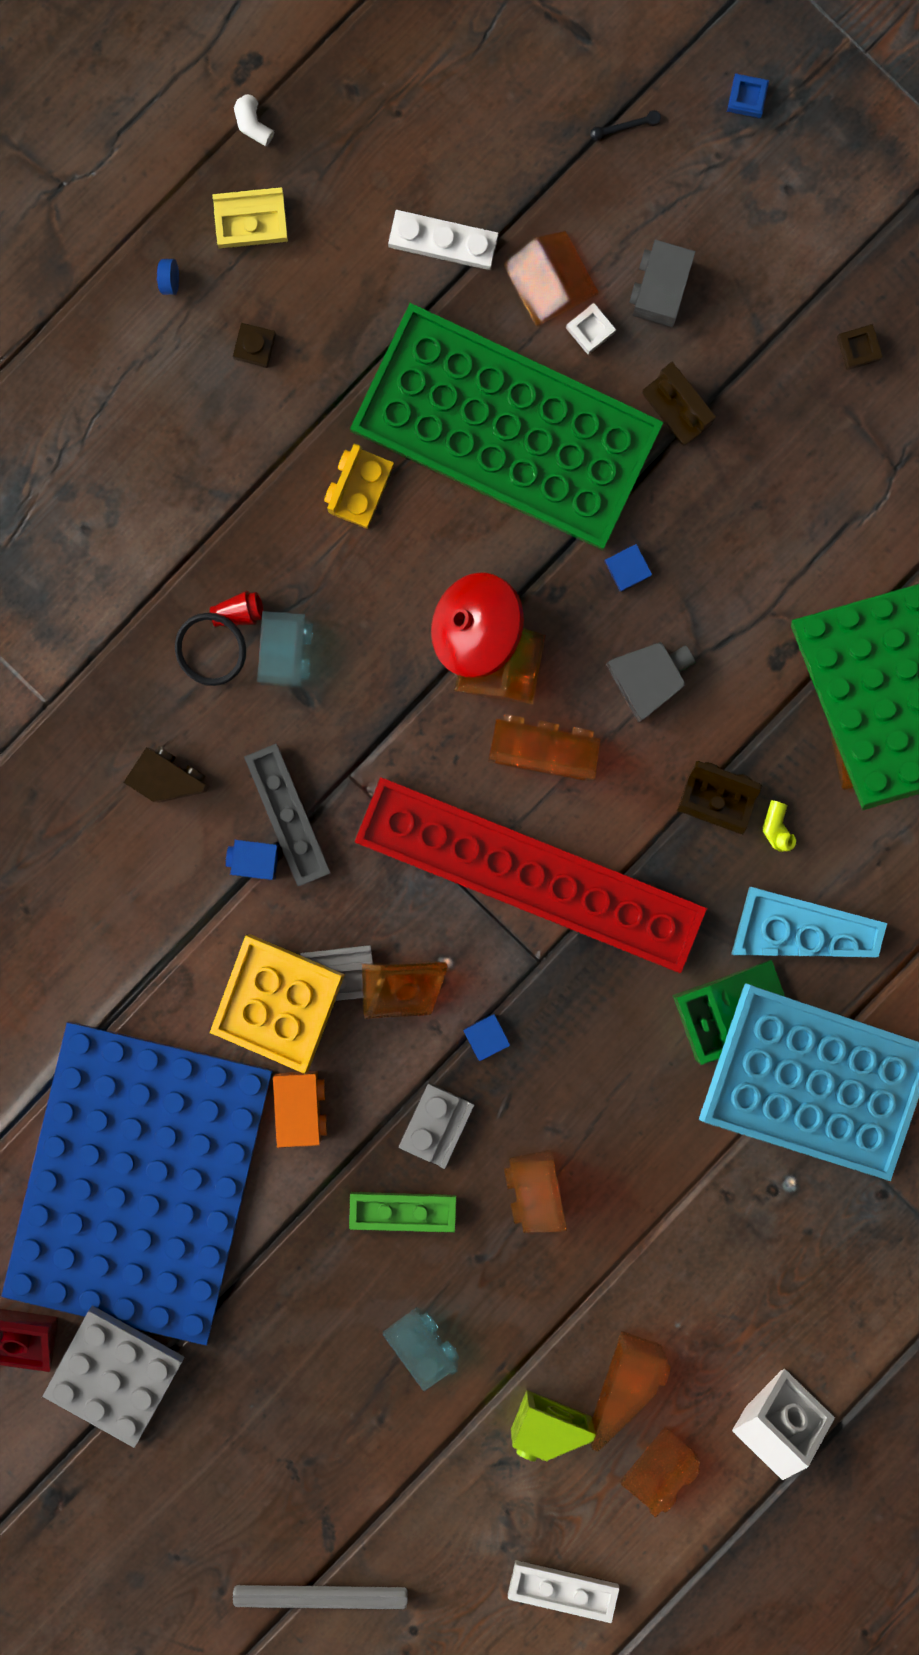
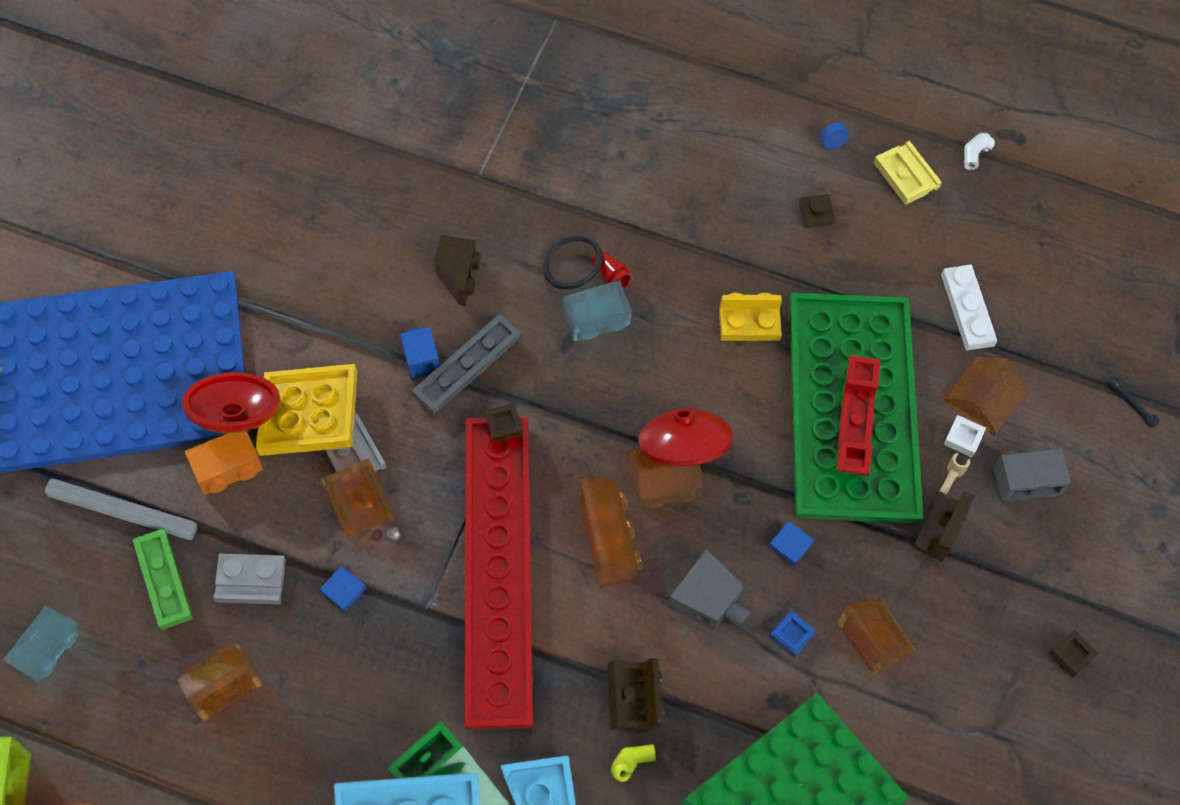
camera: 65 degrees right, 25 degrees down
(231, 1079) = (231, 402): none -> red dish
(305, 1229) = (121, 509): none -> light grey axle
(381, 807) = (503, 422): none -> dark brown plate
(531, 435) = (856, 416): none -> red slope
(624, 362) = (955, 470): none -> tan hand
(720, 612) = (792, 633): none -> blue tile
(759, 530) = (875, 635): none -> clear orange slope

